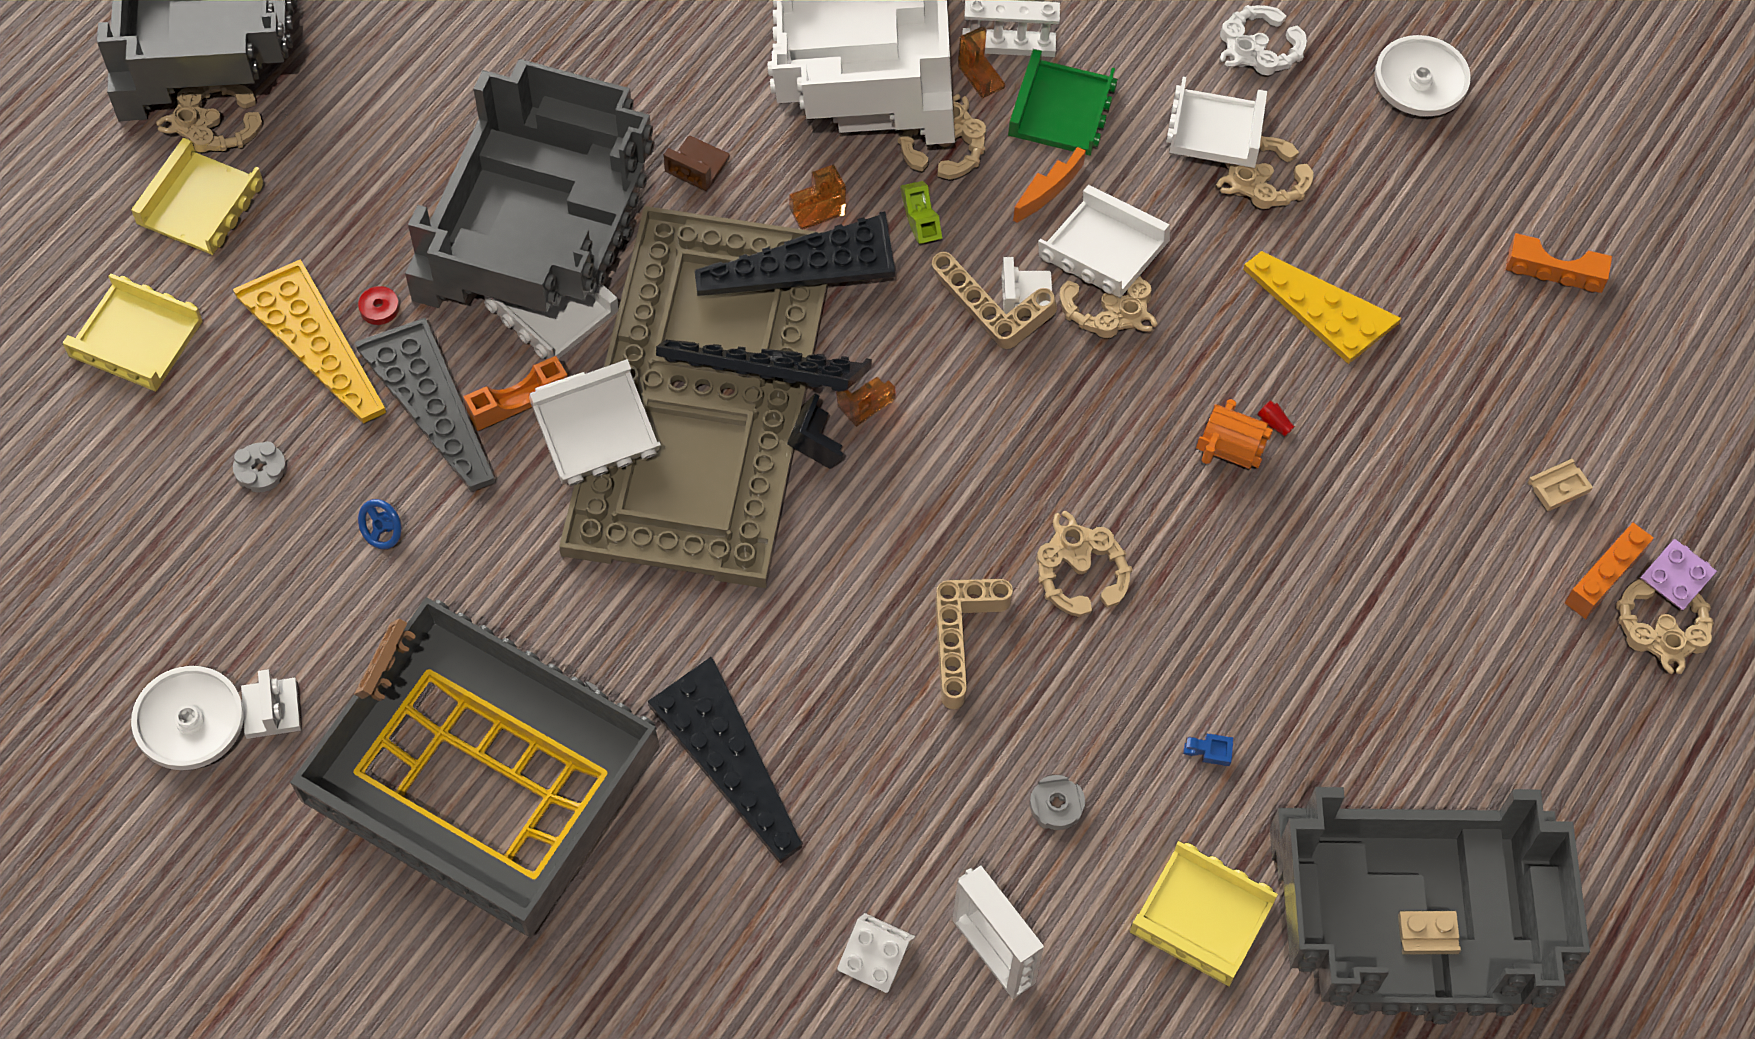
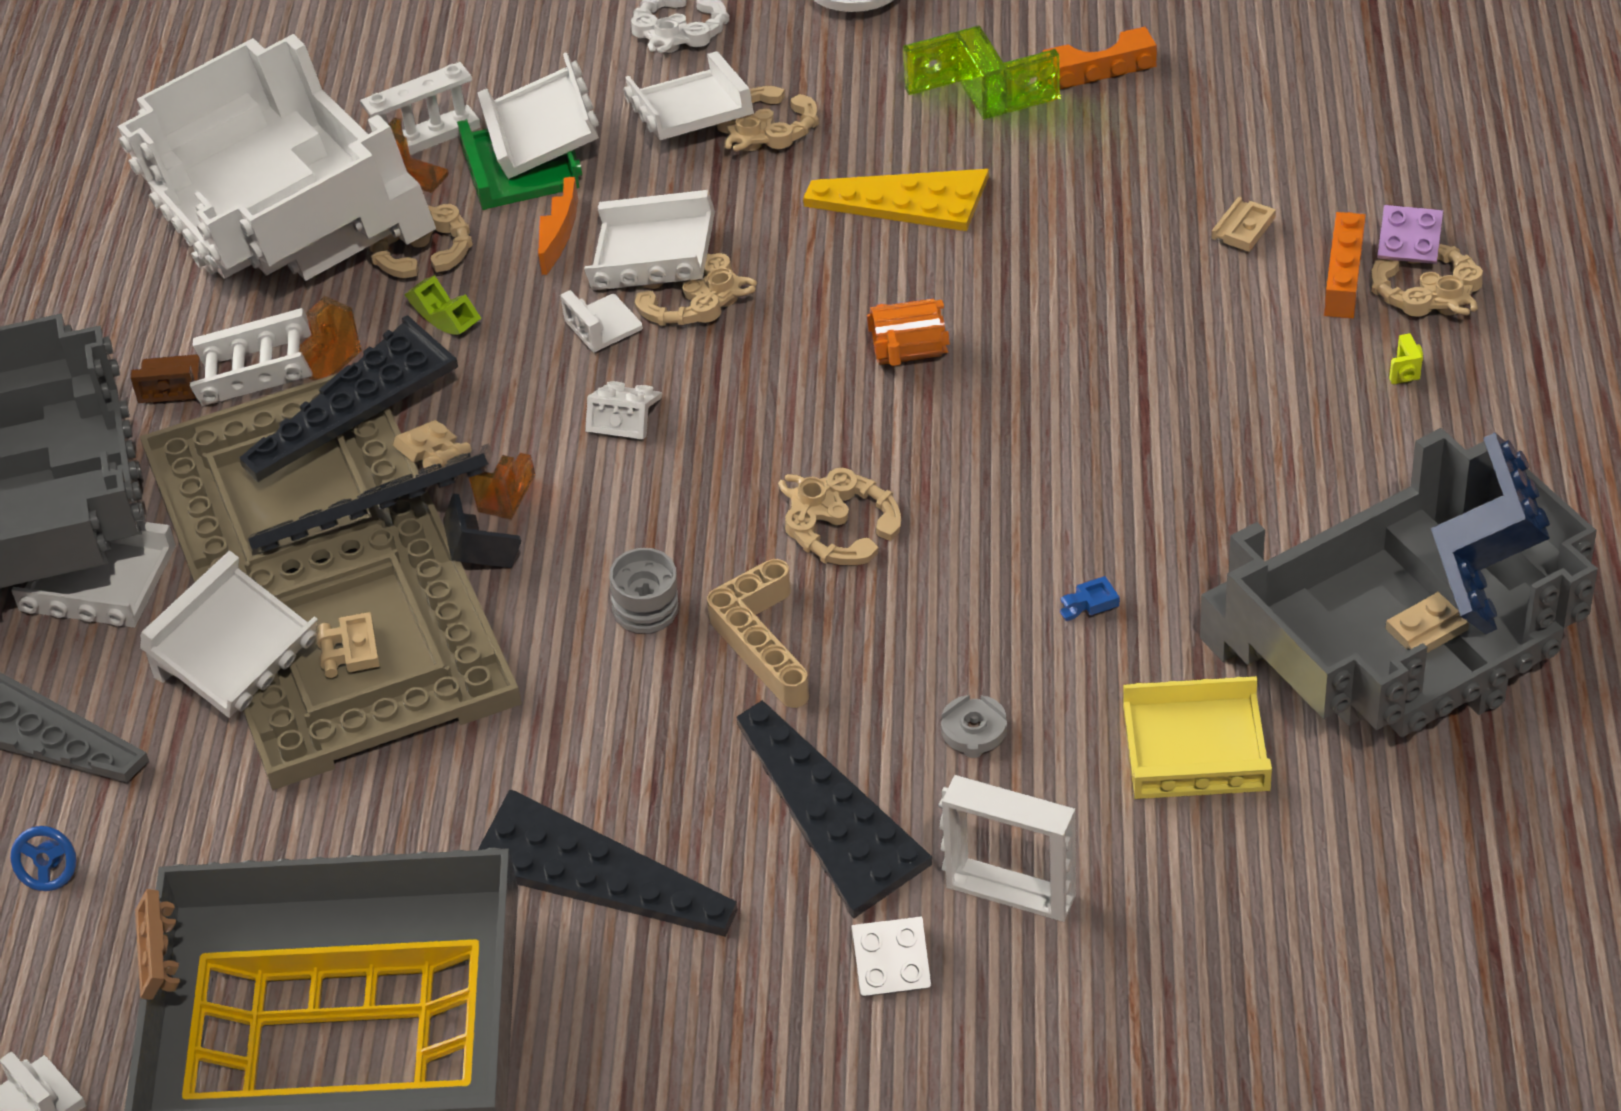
camera: 25 degrees left, 15 degrees down
(492, 406) = (95, 691): orange arch -> none
(684, 473) = (358, 642): none -> tan plate
(759, 162) = (247, 339): none -> white fence
(836, 327) = (430, 443): none -> tan plate
(899, 538) = (644, 590): none -> light grey wheel
(914, 838) = (849, 833): none -> black wing
(986, 306) = (566, 351): tan beam -> none
(989, 378) = (620, 409): none -> white bracket
(1092, 82) = (540, 120): none -> white panel
(1276, 418) = (928, 293): red cone -> none
(1453, 246) = (988, 81): none -> clear neon green bracket
(1534, 906) = (1491, 533): none -> dark blue bracket
(1599, 684) = (1408, 361): none -> neon yellow bracket

